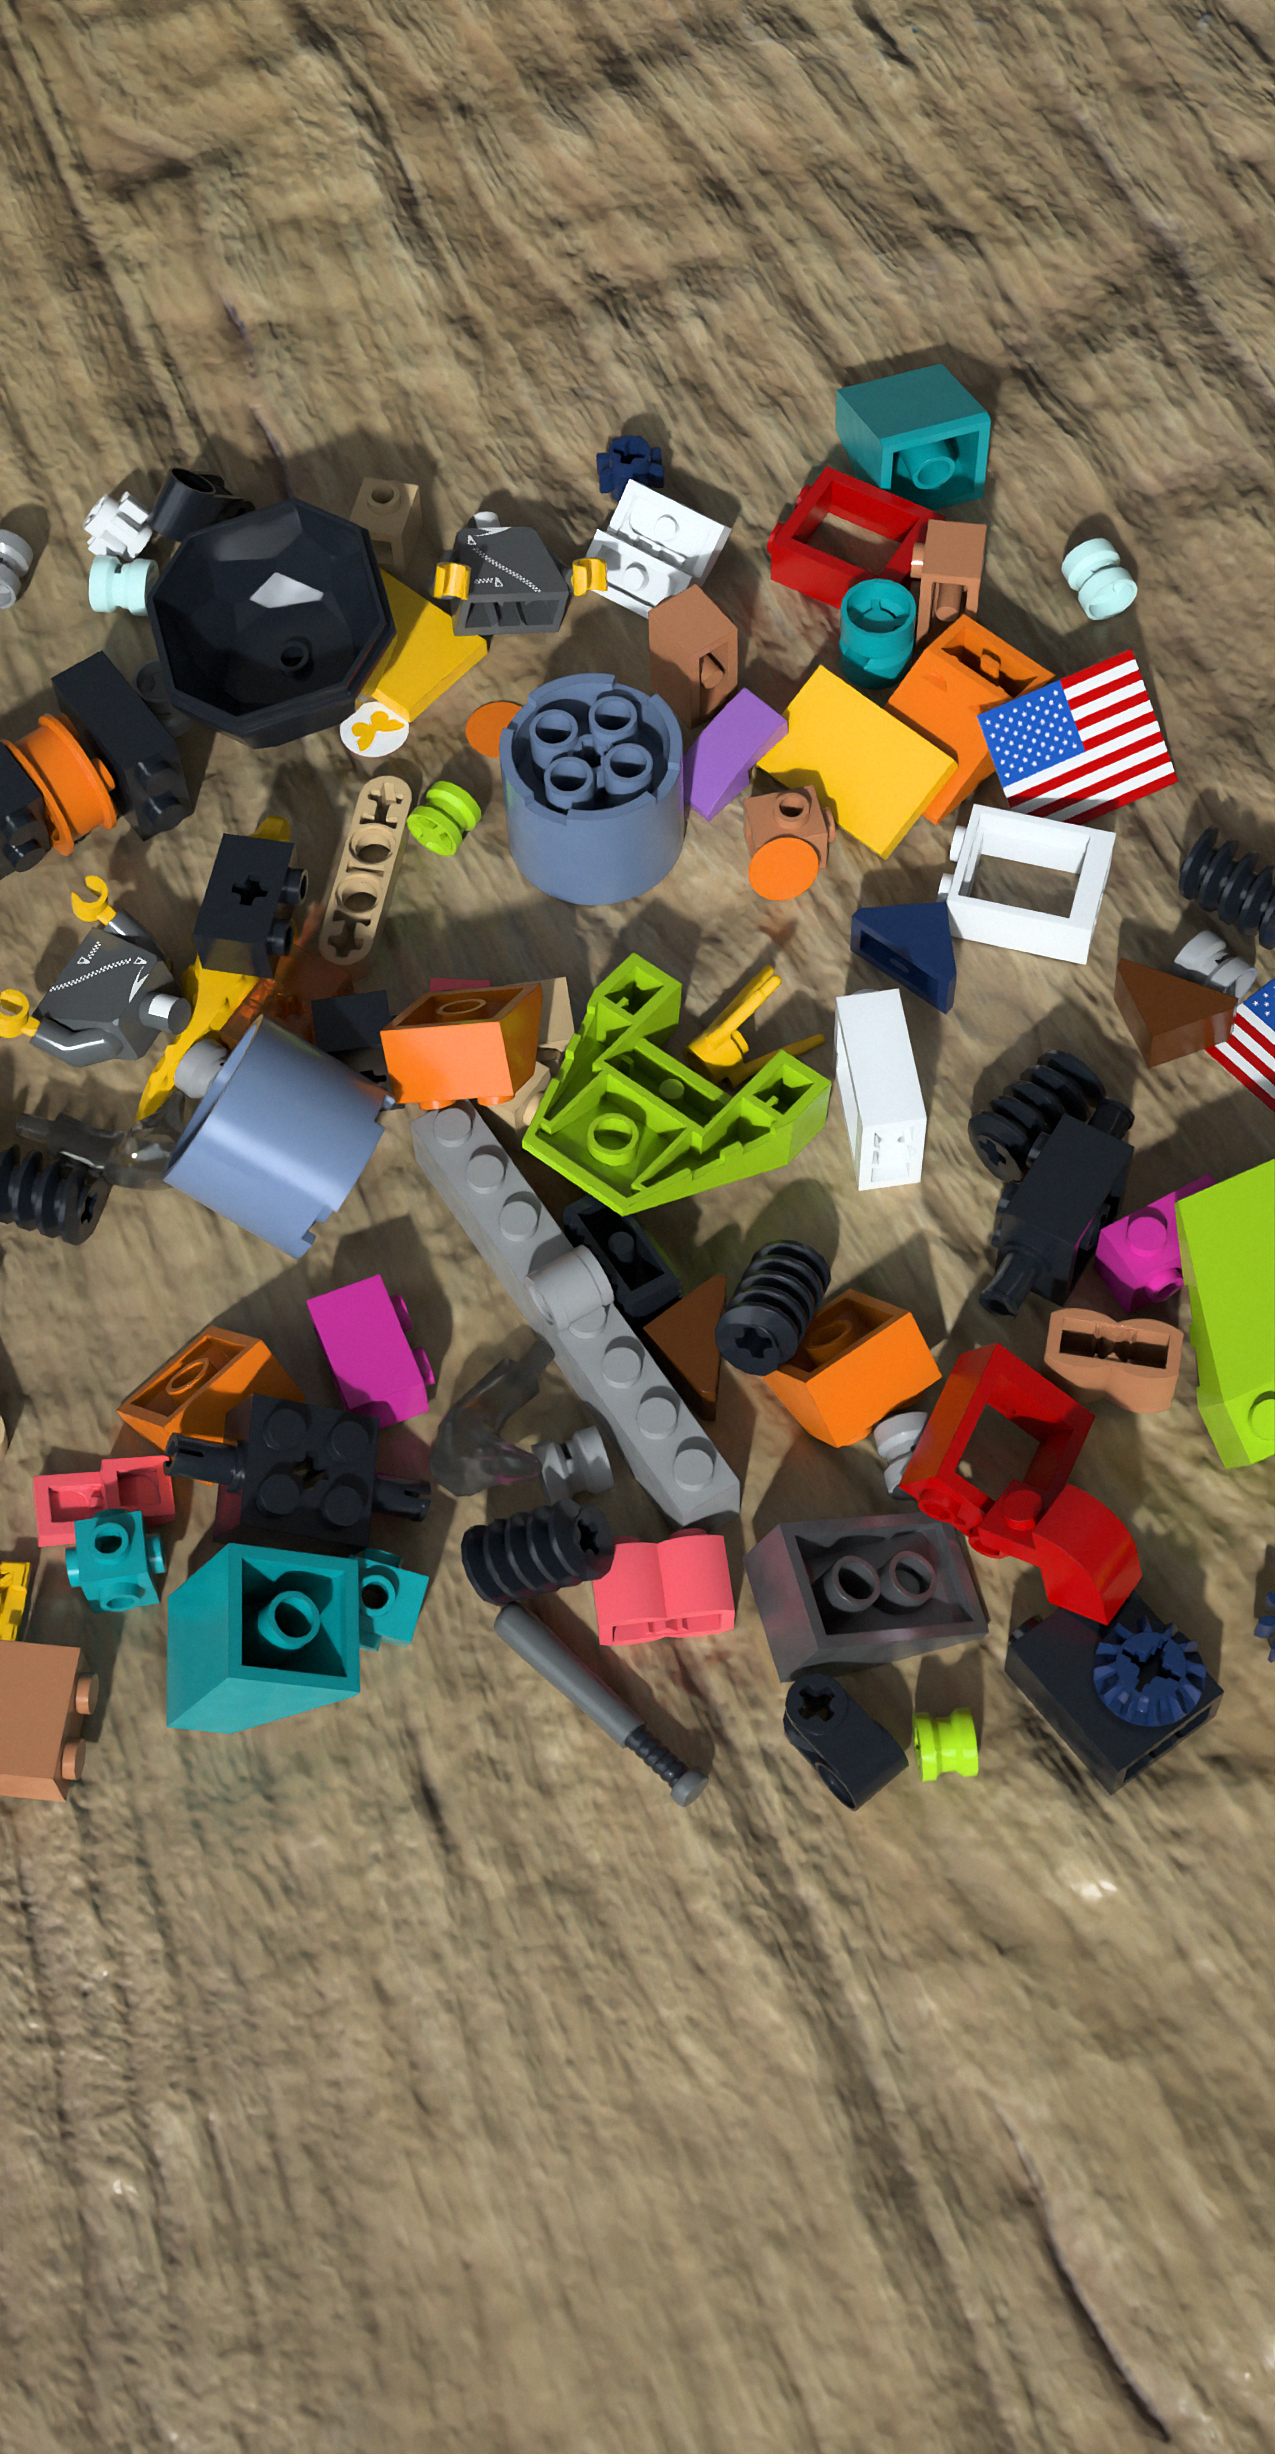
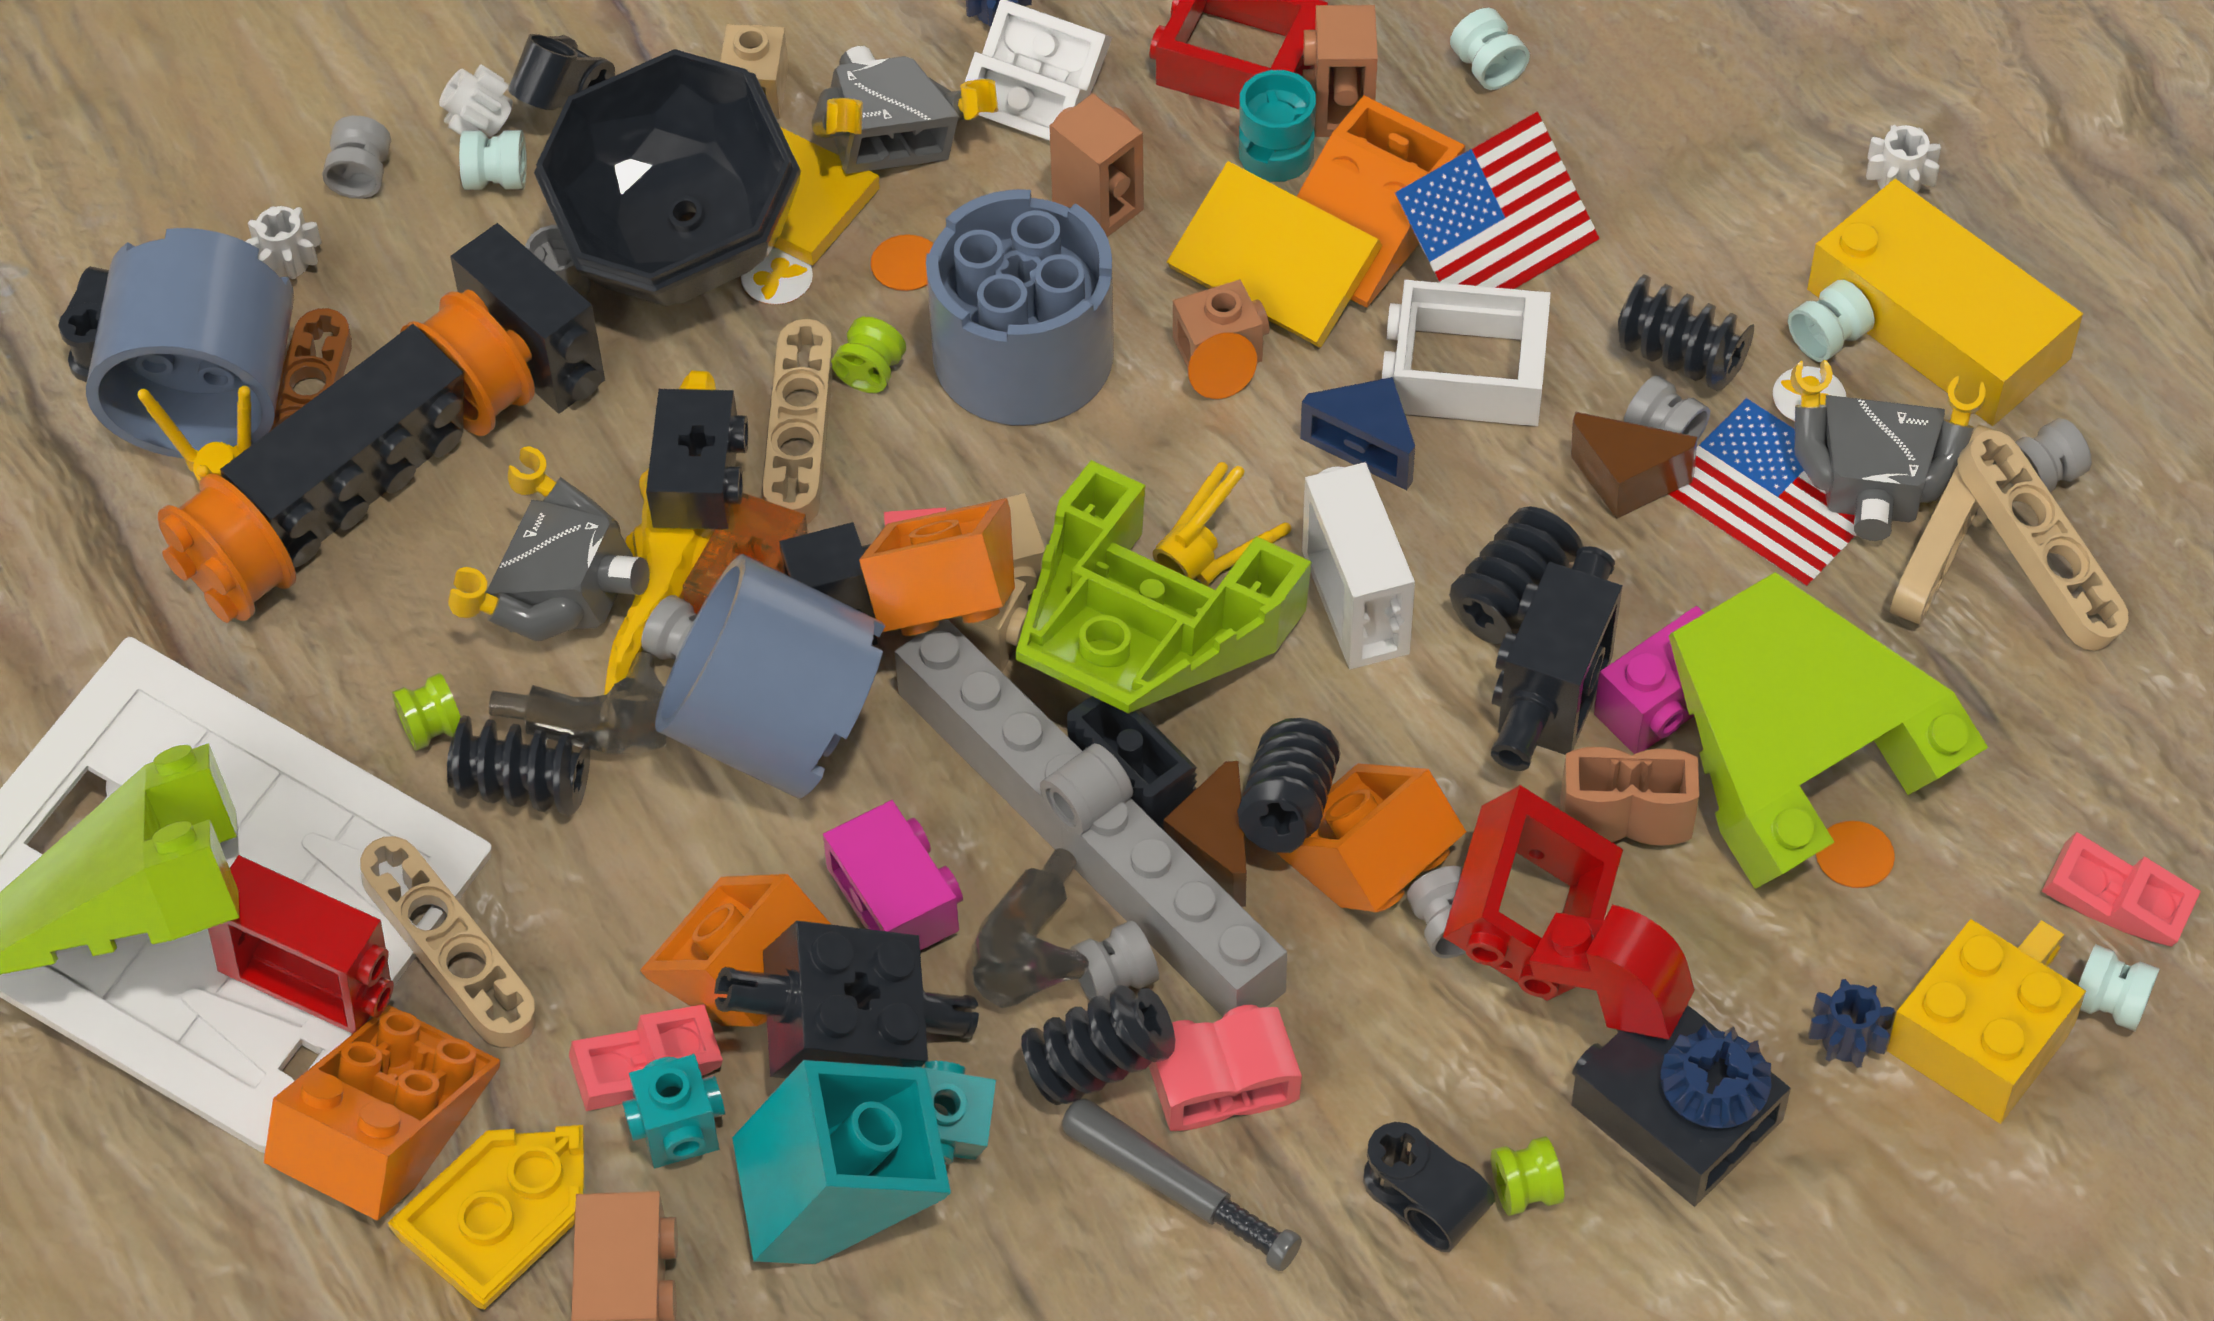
camera: 10 degrees left, 5 degrees down
(725, 751) = (1148, 254): medium lavender slope -> none
(861, 1592) = (1420, 1044): flat silver slope -> none

